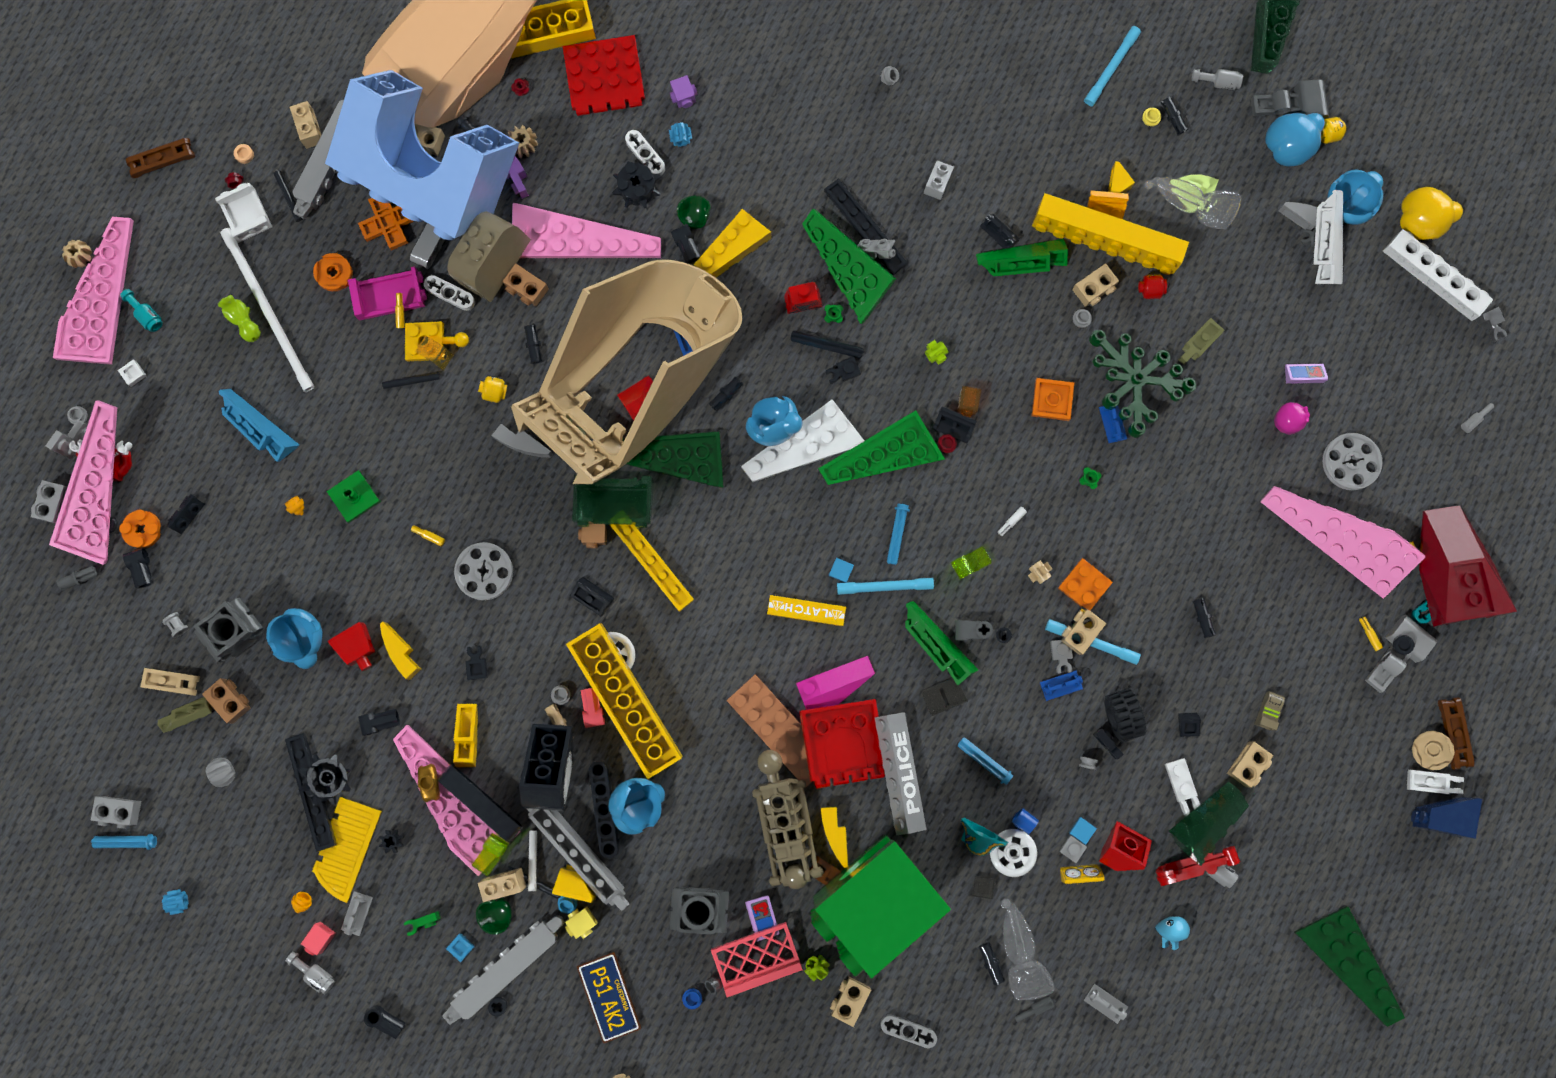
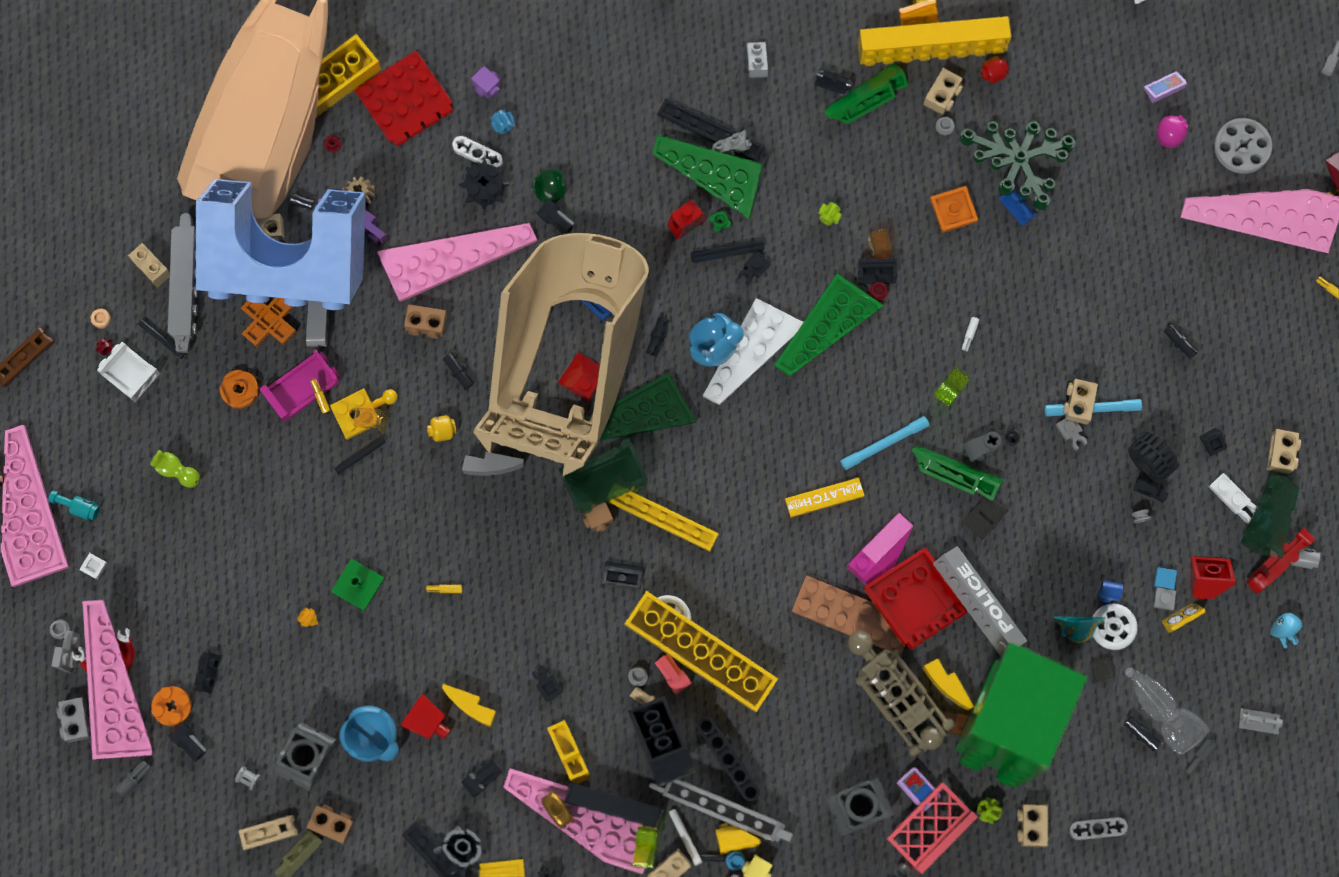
camera: 25 degrees left, 5 degrees down
(255, 426) = (235, 562): dark azure wedge -> none
(301, 375) = (131, 406): white piece -> none
(435, 291) = (343, 363): white beam -> none
(486, 254) = (380, 308): dark tan brick -> none
(490, 577) = (507, 605): light grey wedge -> none
(636, 805) = (757, 740): dark azure piece -> none
(735, 242) = (601, 195): yellow wedge -> none
(841, 570) = (838, 447): dark azure tile -> none
(897, 533) = (873, 392): dark azure axle -> none
(984, 760) = (1050, 557): dark azure axle -> none
(1040, 572) = (1017, 367): tan gear -> none
(1061, 685) = (1084, 458): blue hinge -> none
(1085, 584) = (1062, 360): orange plate -> none
(1090, 473) = (1024, 259): green plate -> none
(1201, 341) = (1060, 99): olive hinge -> none
(1270, 711) = (1278, 397): dark tan leg -> none

